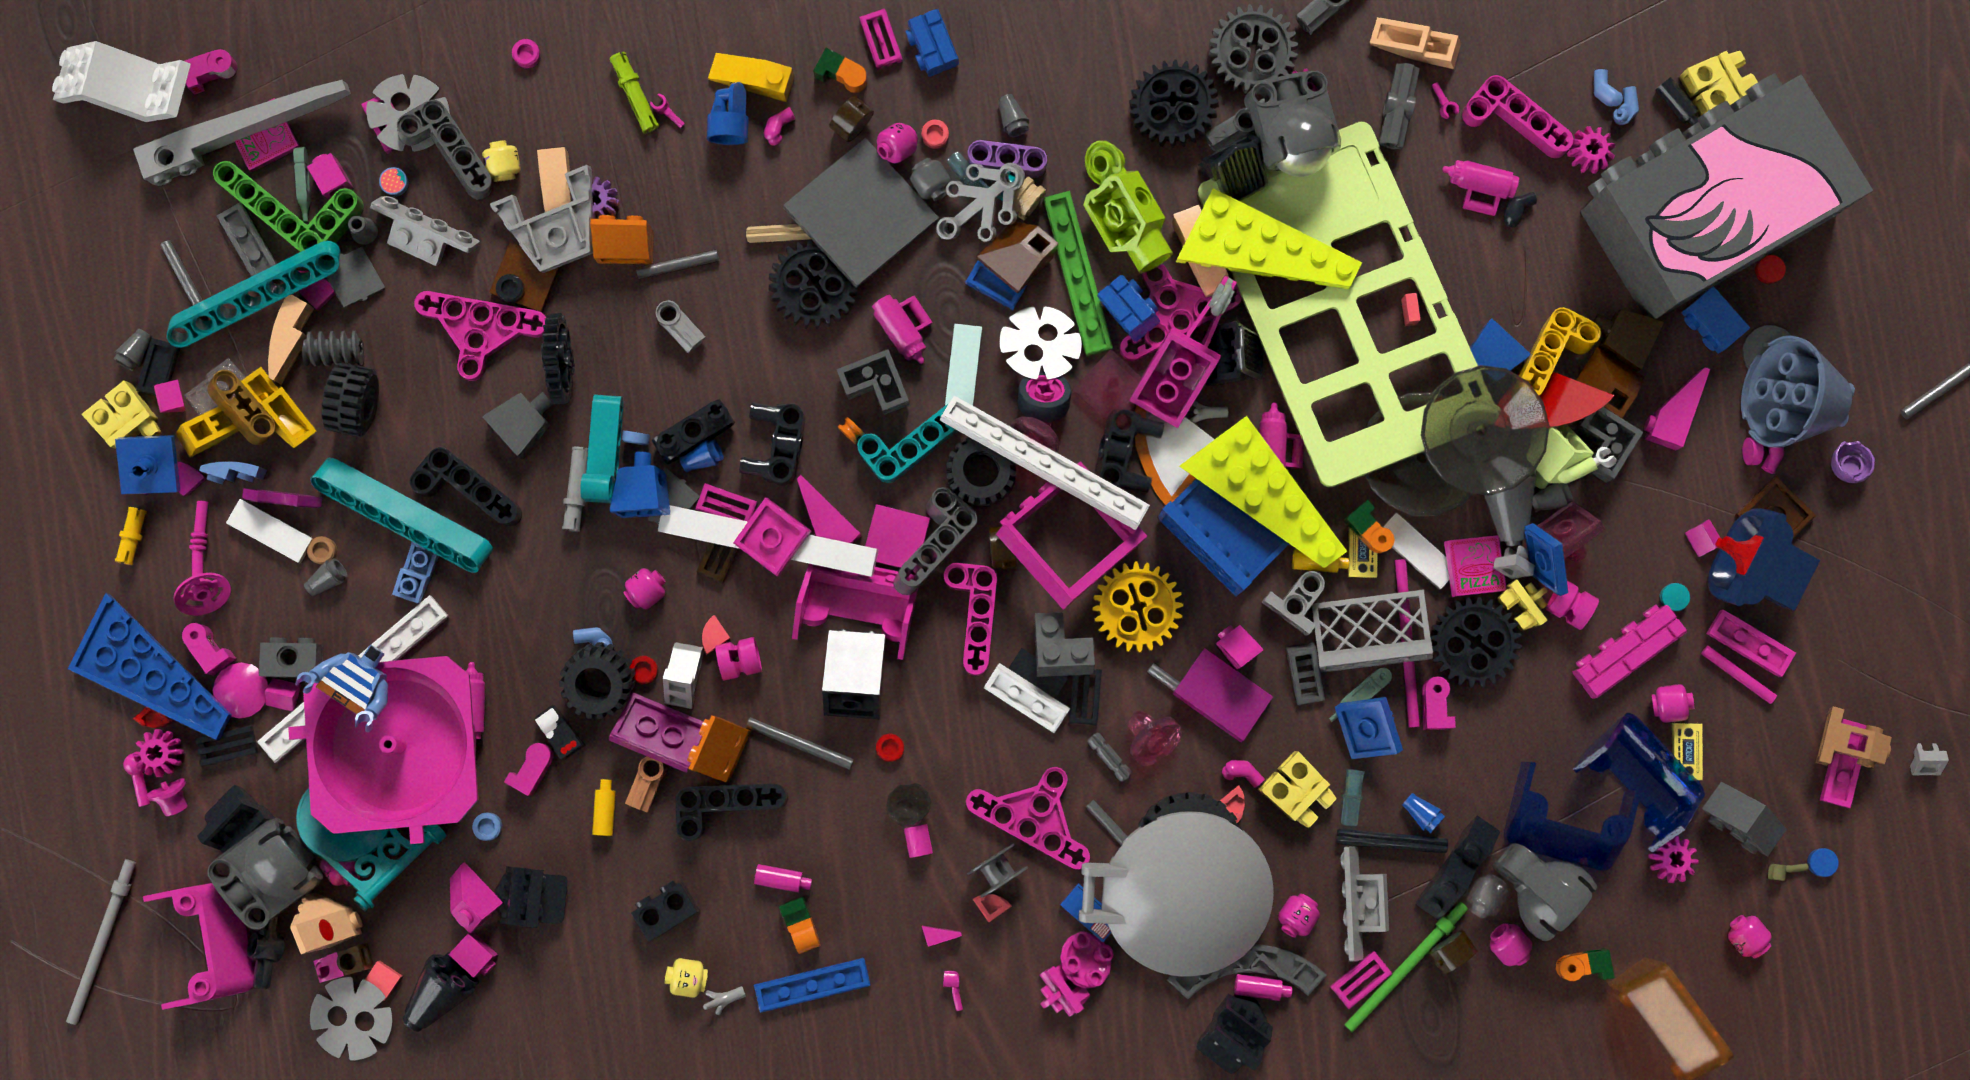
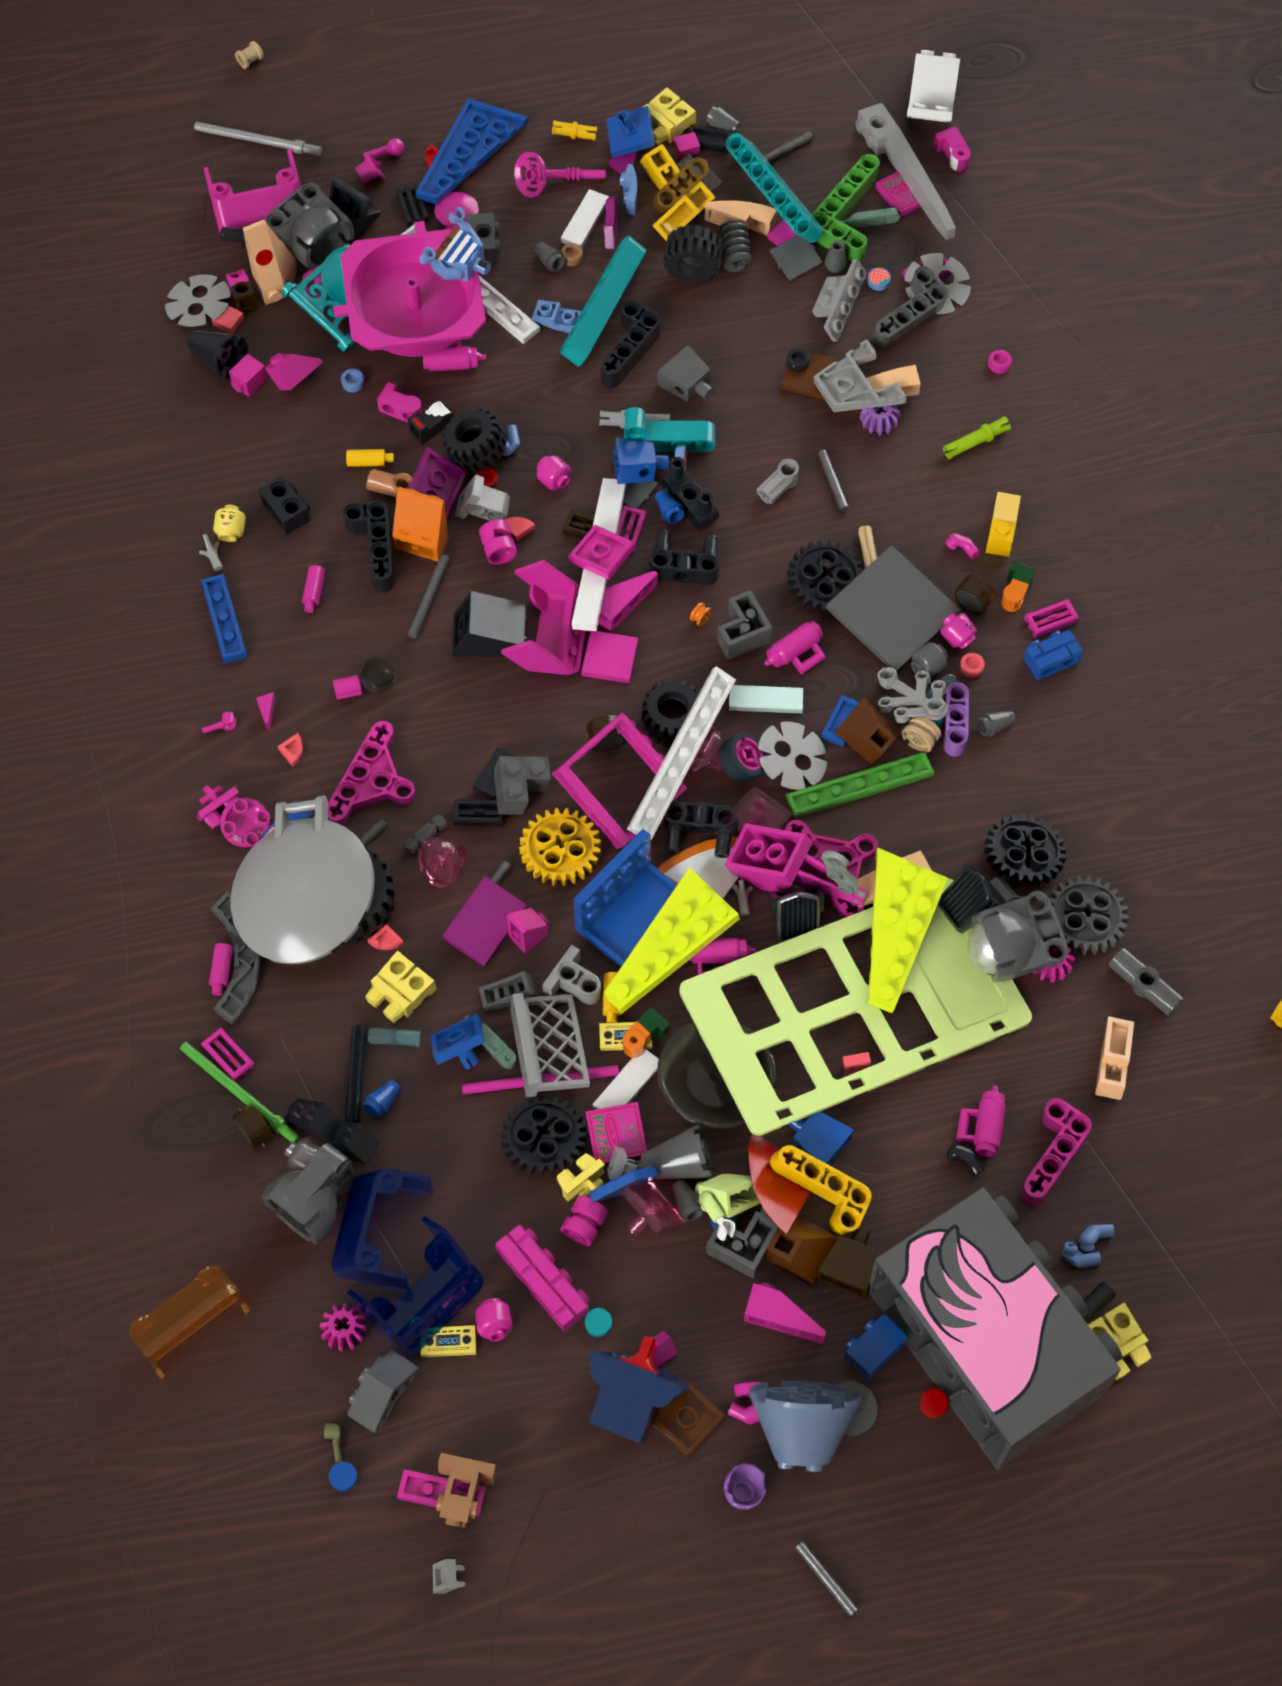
camera: 85 degrees right, 20 degrees down
(167, 746) = (404, 160): dark pink gear -> none
(204, 649) = (488, 183): dark pink leg -> none
(246, 239) = (819, 186): flat silver tile -> none
(329, 175) = (878, 233): dark pink brick -> none
(465, 325) = (761, 355): dark pink beam -> none
(501, 161) = (904, 347): light yellow head -> none
(531, 897) = (294, 411): black piece -> none
(557, 358) = (739, 387): black gear -> none
(622, 240) = (847, 433): orange slope -> none
(664, 109) = (966, 462): dark pink hand -> none
(729, 126) = (959, 504): blue piece -> none
(800, 925) = (275, 603): leg -> none
(890, 747) = (427, 663): red tile -> none
(895, 456) = (683, 648): teal beam -> none
(932, 547) = (603, 673): dark grey beam -> none
(975, 620) = (542, 716): dark pink beam -> none
(997, 870) = (321, 742): dark grey piece -> none
(1026, 698) = (474, 764): white tile -> none
(1124, 208) = (918, 809): lime brick -> none
(1128, 307) = (830, 820): blue brick -> none
(1236, 1034) = (181, 946): black piece -> none
(1242, 768) = (418, 942): dark pink arm -> none
(1299, 915) = (285, 994): dark pink head -> none
(1365, 903) = (297, 1048): light grey bracket -> none
(1399, 106) = (1050, 1044): dark grey piece -> none
(1435, 705) = (483, 1103): dark pink leg -> none
(1444, 102) = (1062, 1088): dark pink hand -> none
(1511, 944) = (257, 1178): dark pink head -> none
(1512, 423) = (732, 1082): clear smoke dish -> none
(1576, 965) = (243, 1251): leg -> none
(1598, 142) = (1037, 1214): dark pink gear -> none
(1739, 674) = (525, 1388): dark pink bar -> none
(1749, 936) = (269, 1403): dark pink head -> none
(1751, 643) = (556, 1395): dark pink plate -> none

